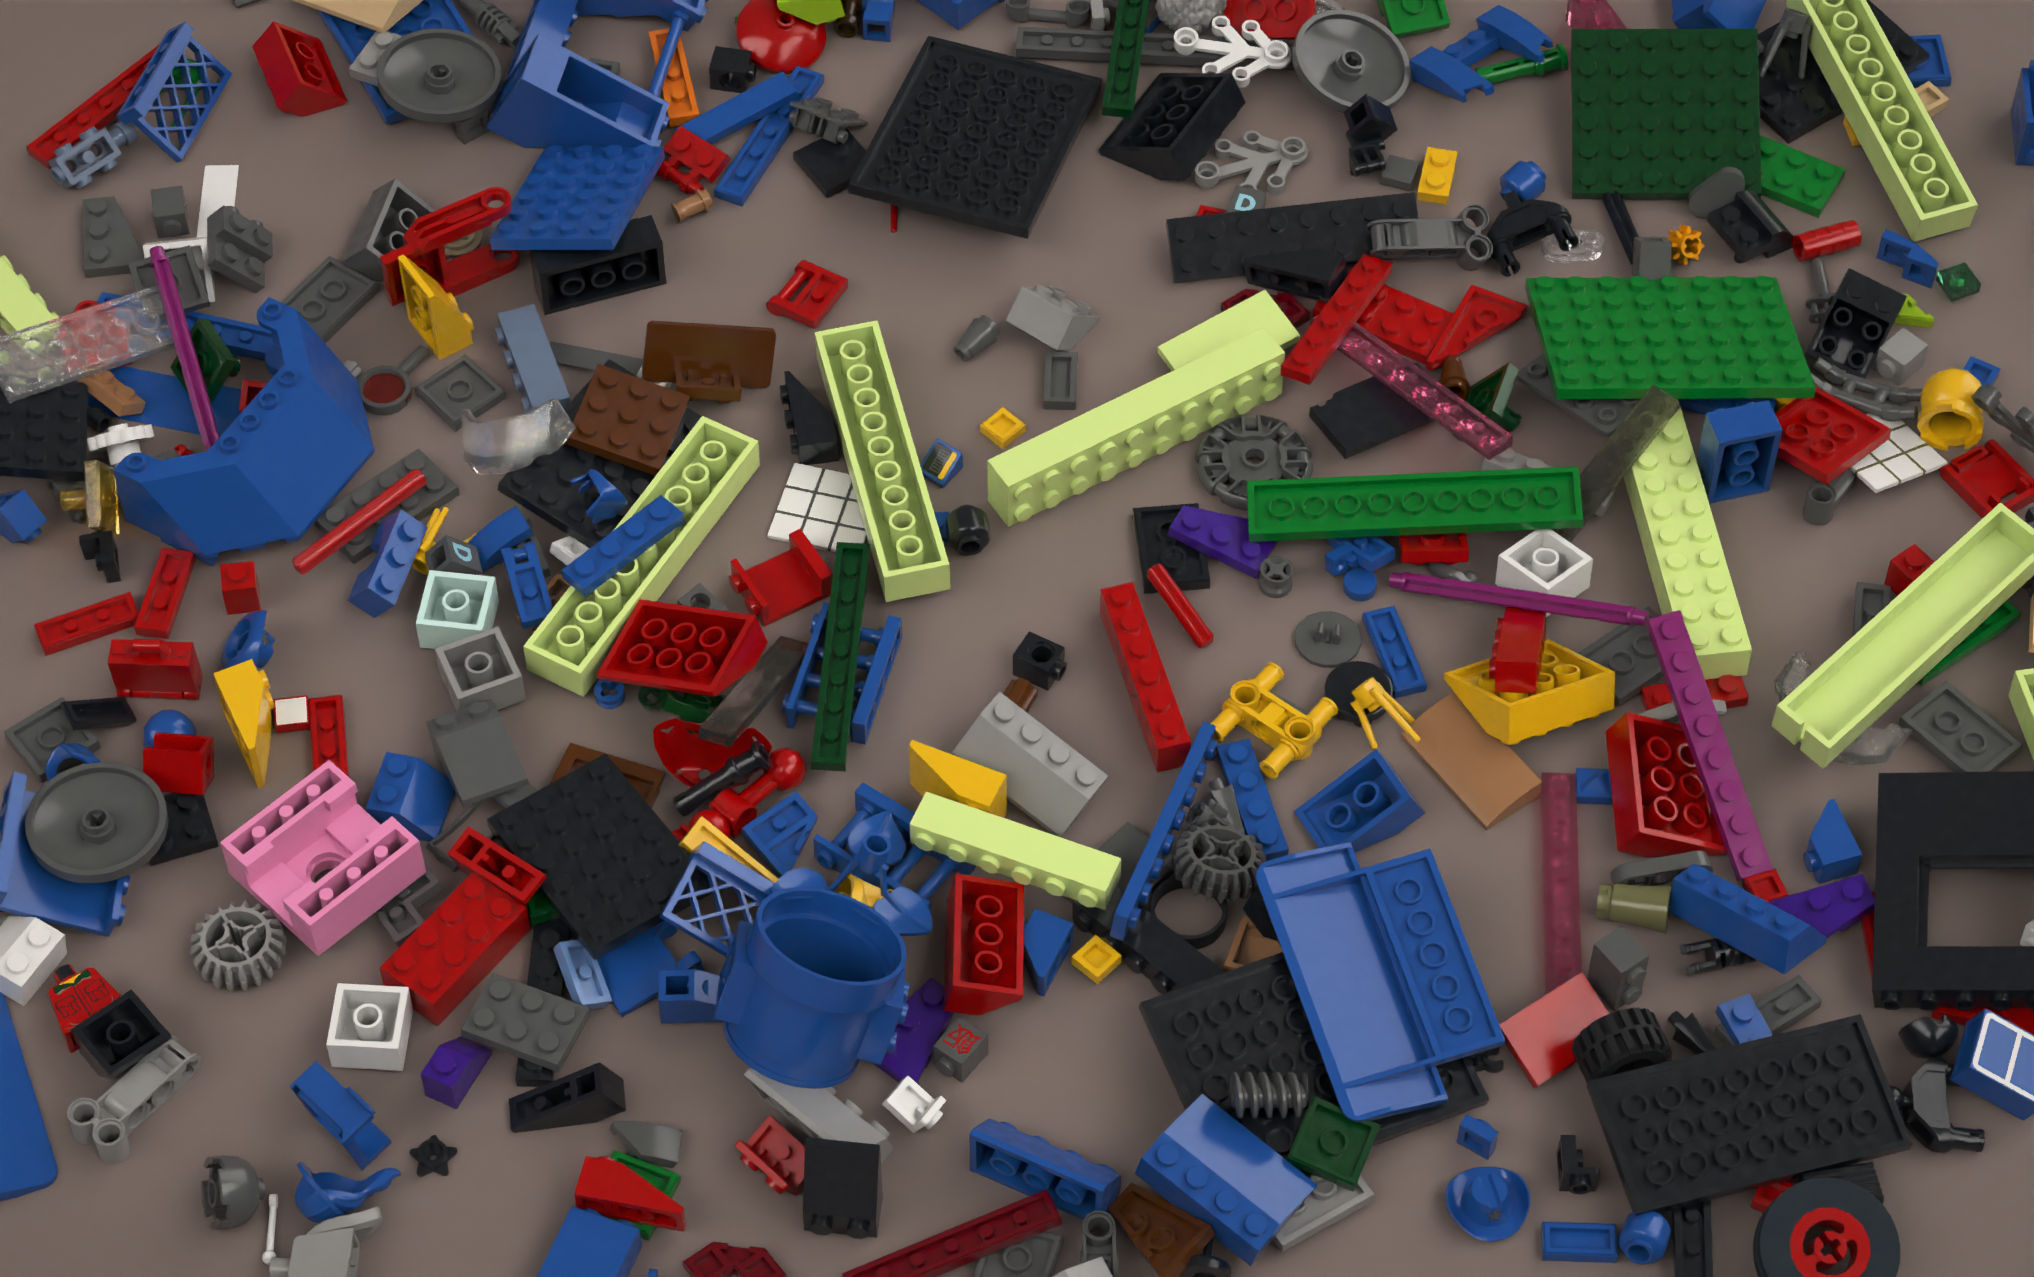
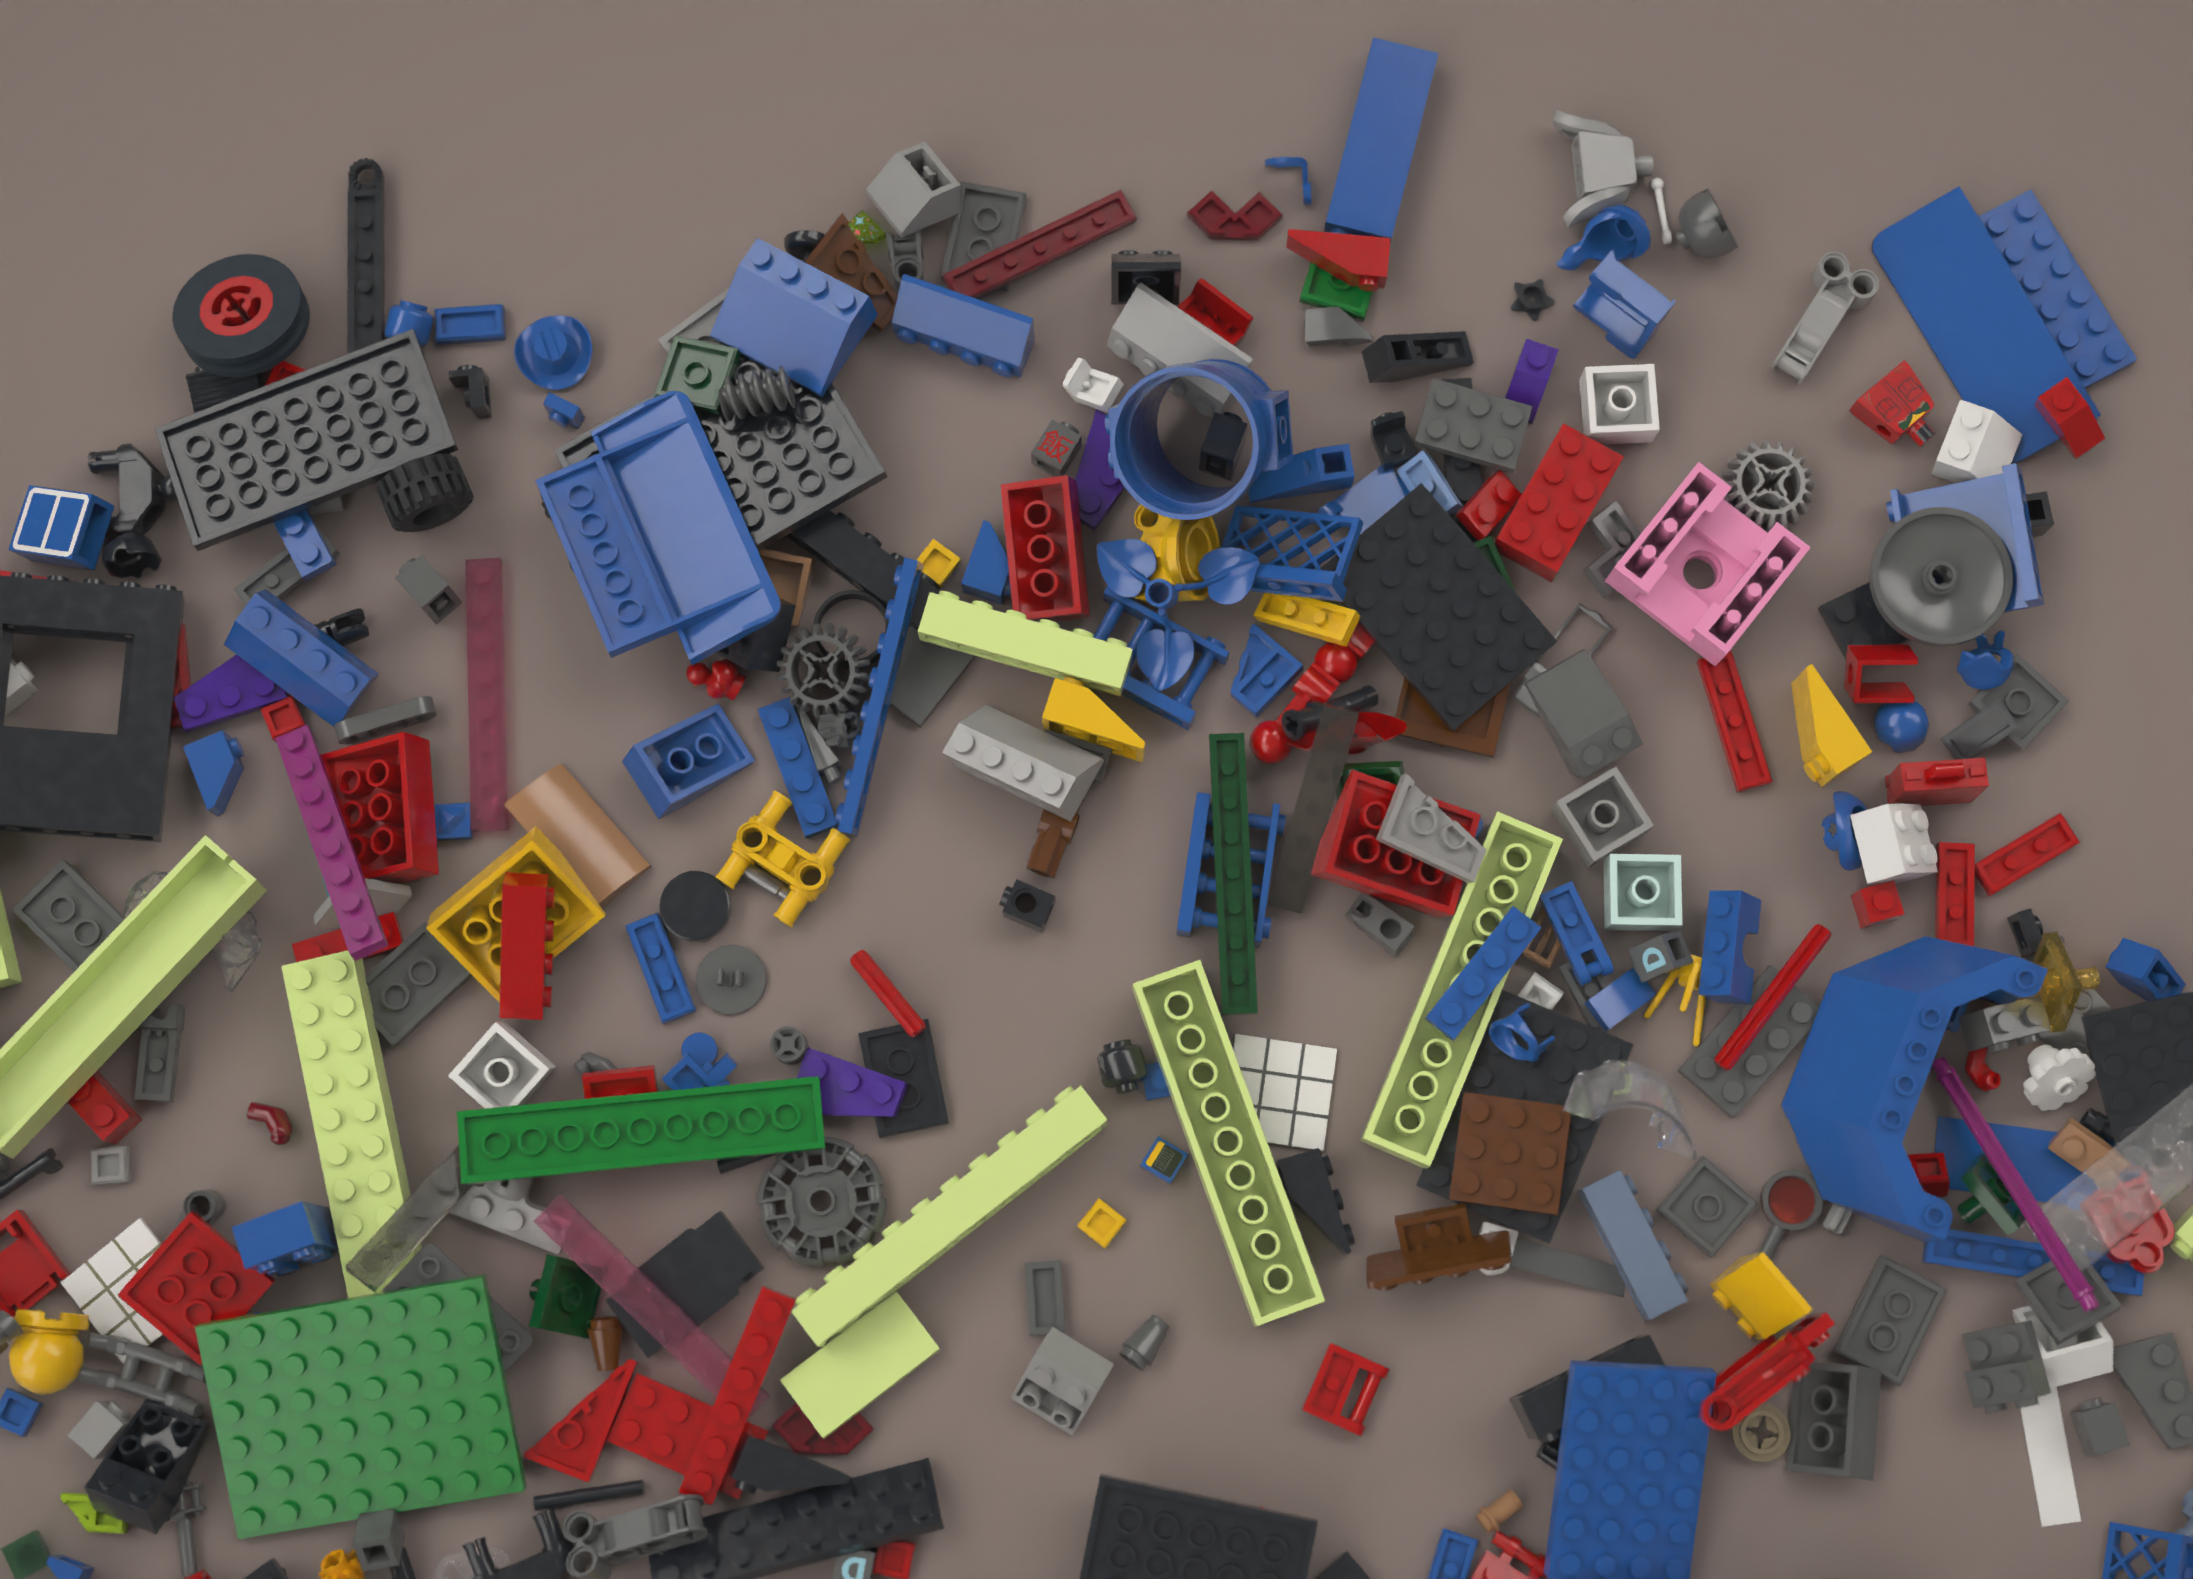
camera: 175 degrees right, 25 degrees up
(119, 1035) = (1847, 360): black slope -> none
(213, 617) = (1894, 843): none -> white brick
(291, 714) = (1785, 764): white tile -> none
(412, 795) = (1642, 667): blue slope -> none
(496, 865) = (1540, 585): red slope -> none
(526, 950) = (1488, 505): none -> red plate
(610, 1025) = (1391, 440): none -> black bracket
(651, 644) = (1426, 833): none -> light grey wing
(783, 582) = (1313, 983): red panel -> none
(1144, 676) = (917, 896): red brick -> none
(1371, 696) = (680, 880): yellow plant -> none
(1463, 284) = (588, 1495): none -> black bar
(1519, 598) = (527, 1020): magenta piece -> none
(1545, 1030) = (488, 529): tile -> none
(1635, 905) = (410, 675): olive plant -> none
(1690, 1033) = (360, 542): black piece -> none
(1758, 566) = (275, 1119): none -> dark red arm
(1904, 540) = (110, 1165): none -> light grey tile

